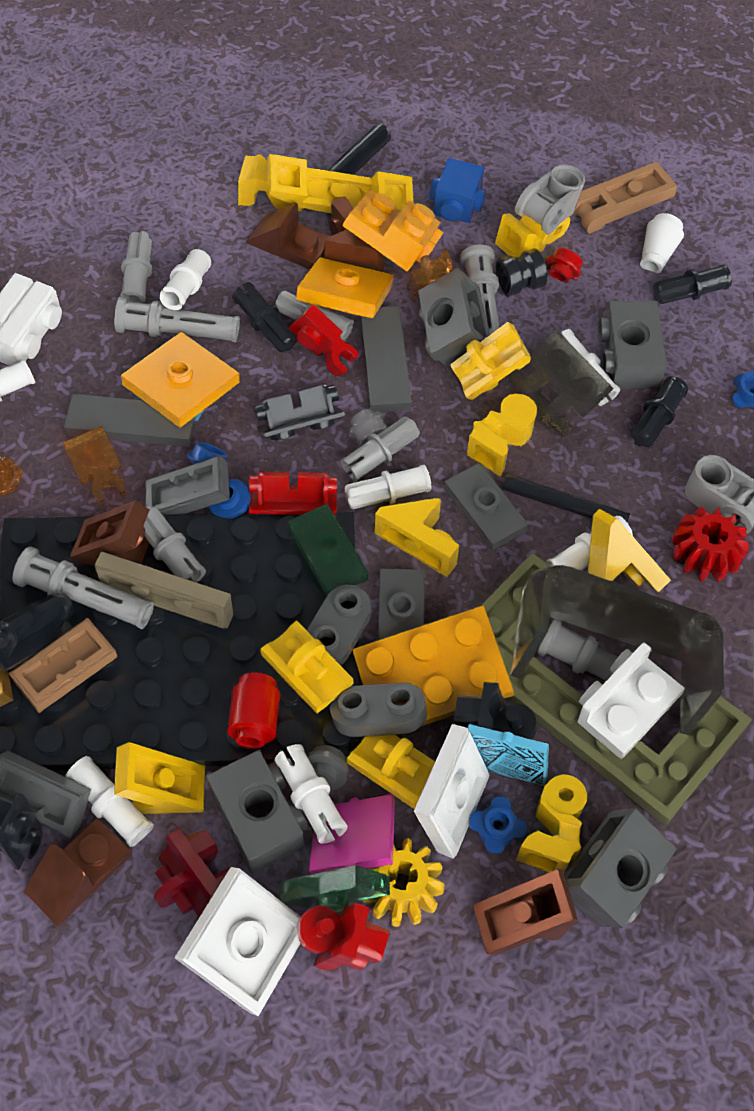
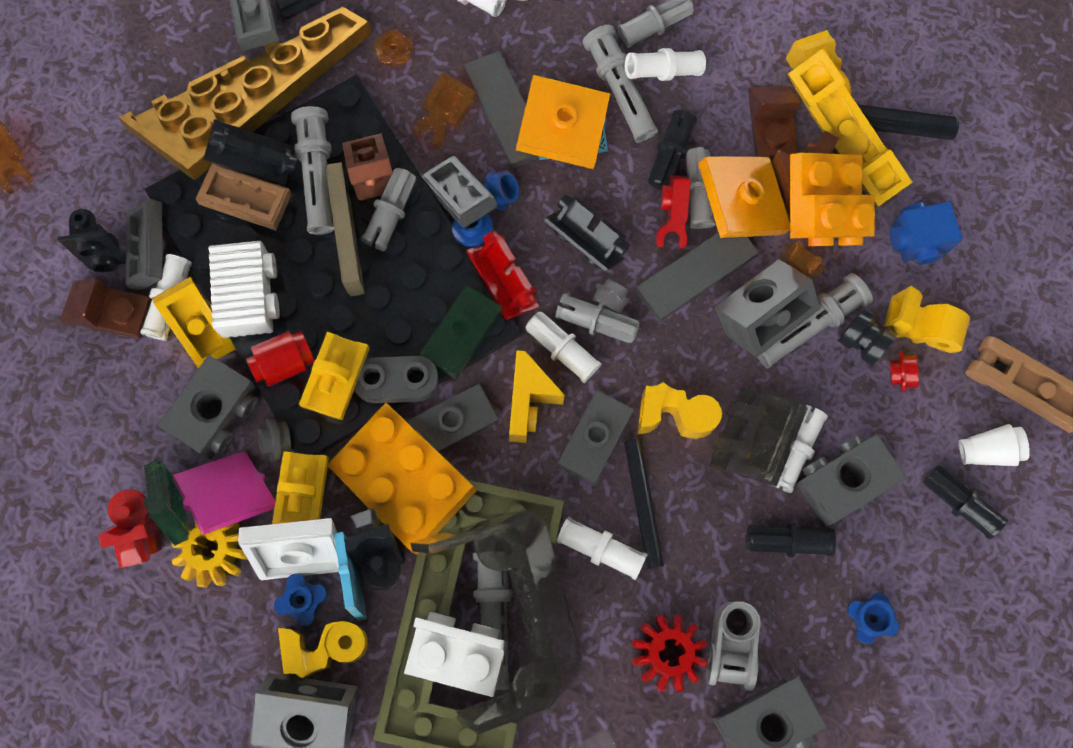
camera: 60 degrees right, 15 degrees up
(161, 709) = (242, 289): none -> white brick
(185, 873) = (148, 378): dark red hips -> none
(242, 941) = (97, 455): white plate -> none
(311, 794) = (235, 440): white pin -> none
(378, 711) = (332, 450): dark grey plate -> none
(490, 360) = (739, 363): yellow hips -> none
(526, 913) = (227, 659): copper slope -> none
(552, 197) = (950, 319): light grey piece -> none
(617, 551) = (601, 576): yellow slope -> none

